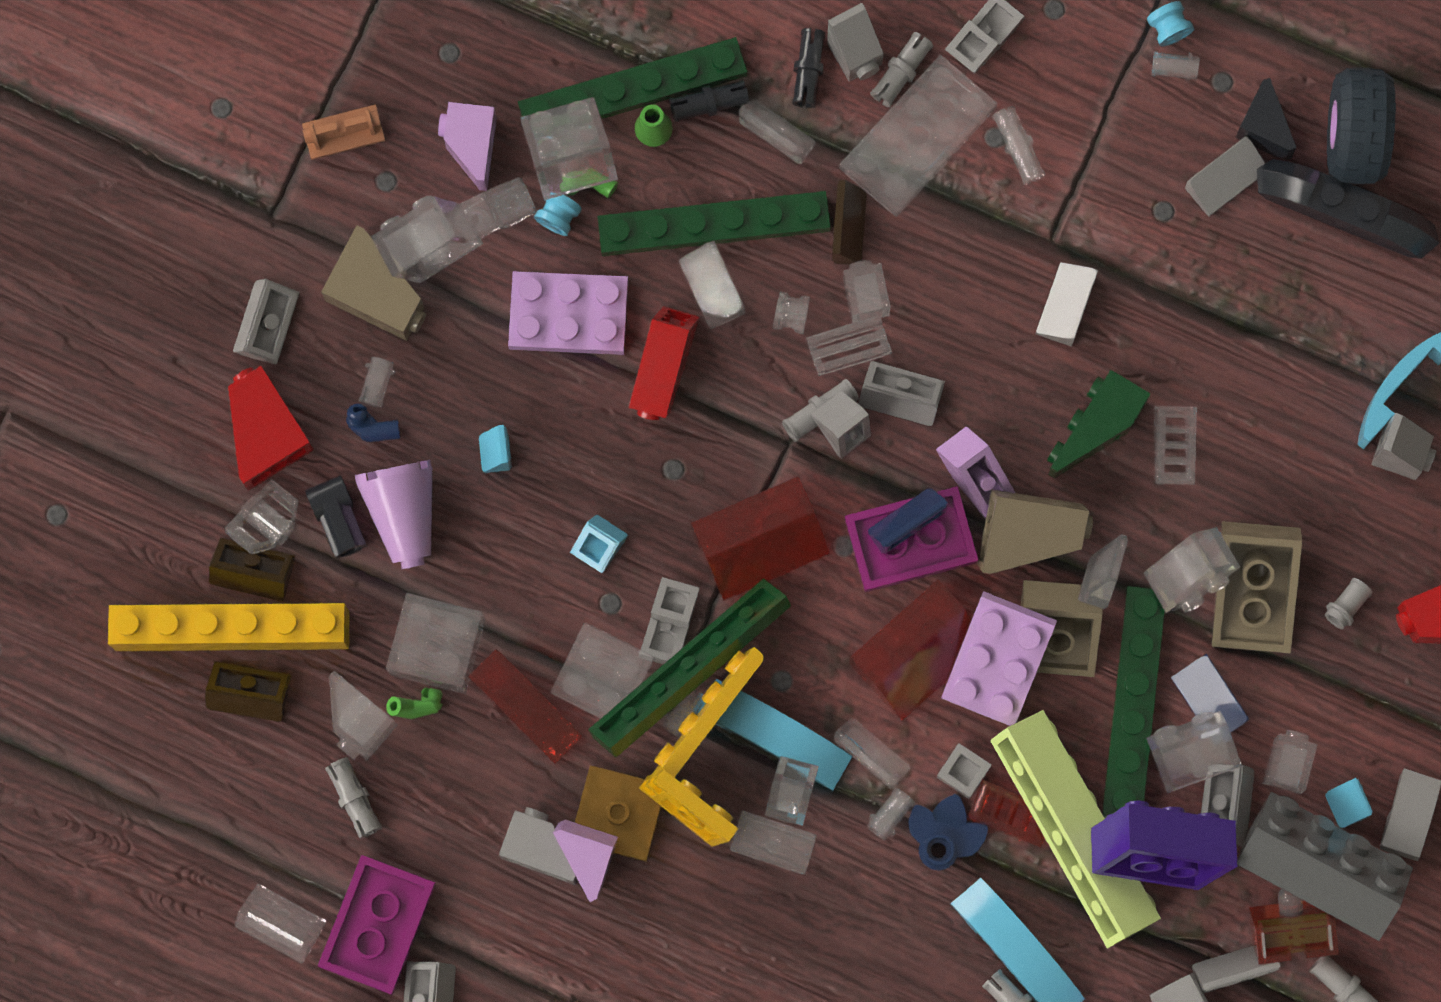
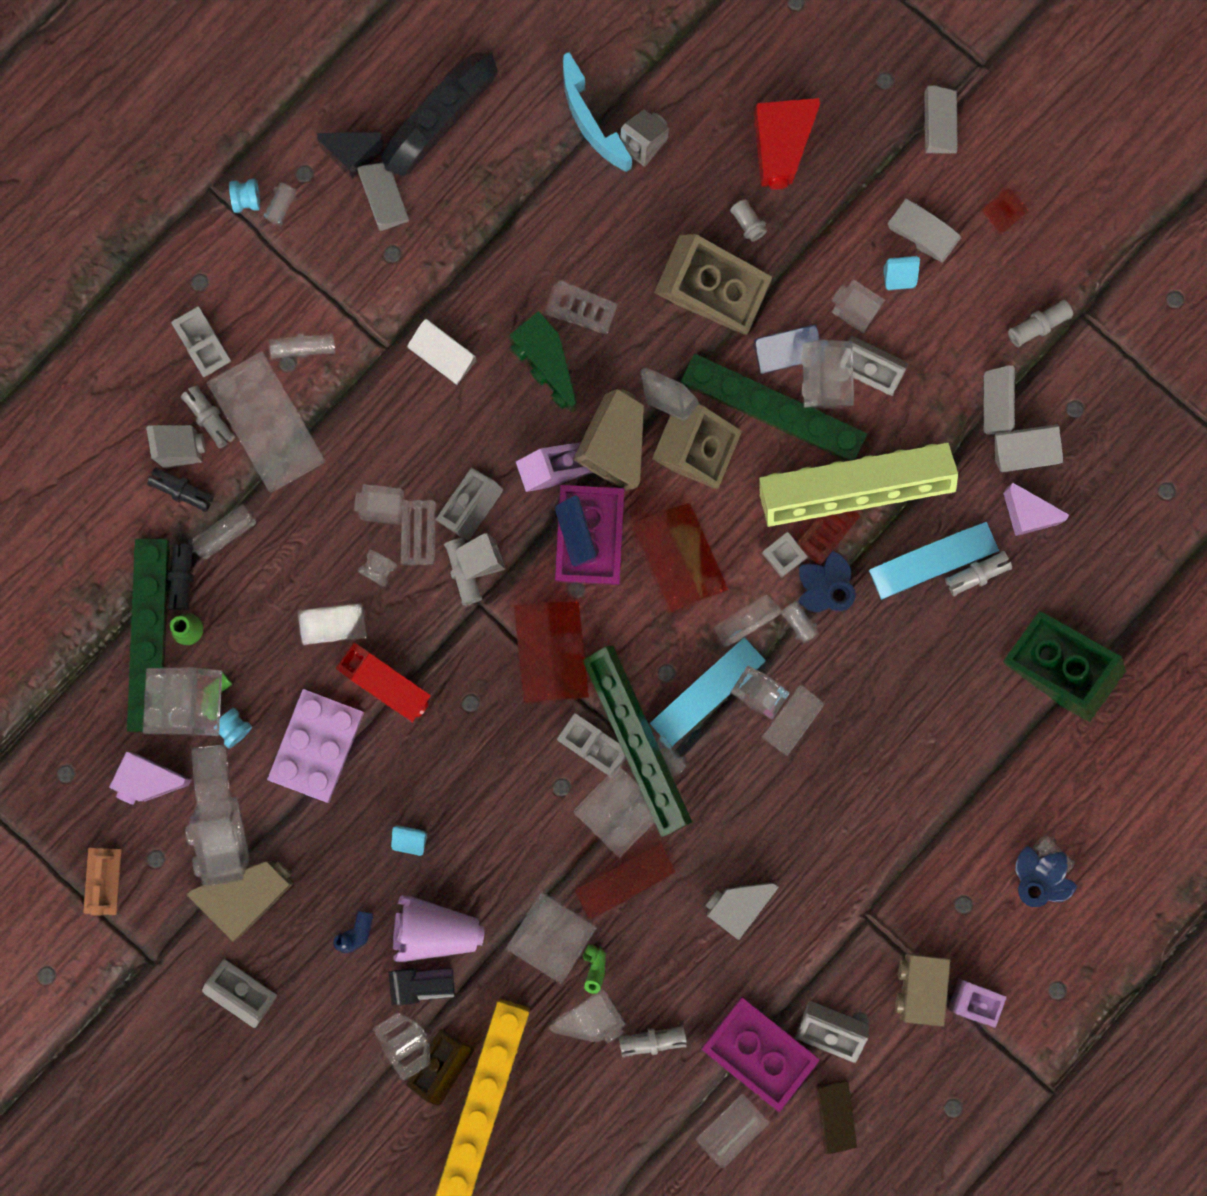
camera: 80 degrees left, 5 degrees up
(247, 691) = (538, 1101): dark brown slope -> none
(263, 428) = (327, 1023): red slope -> none
(376, 381) = (320, 918): clear pin -> none
(587, 853) = (757, 869): lavender slope -> none
(598, 543) = (511, 781): medium azure slope -> none
(619, 808) = (731, 834): pearl gold plate -> none
(682, 798) = (692, 754): yellow bracket -> none
(714, 221) = (282, 606): dark green plate -> none
(849, 223) = (320, 500): dark brown slope -> none
(998, 659) = (709, 497): lavender plate -> none
(1164, 846) = (897, 420): dark purple brick -> none
(1192, 570) = (688, 326): clear brick -> none
(1290, 929) = (986, 346): clear red piece -> none
(1325, 865) = (948, 305): dark grey brick -> none
(1361, 125) = (381, 75): black wheel -> none

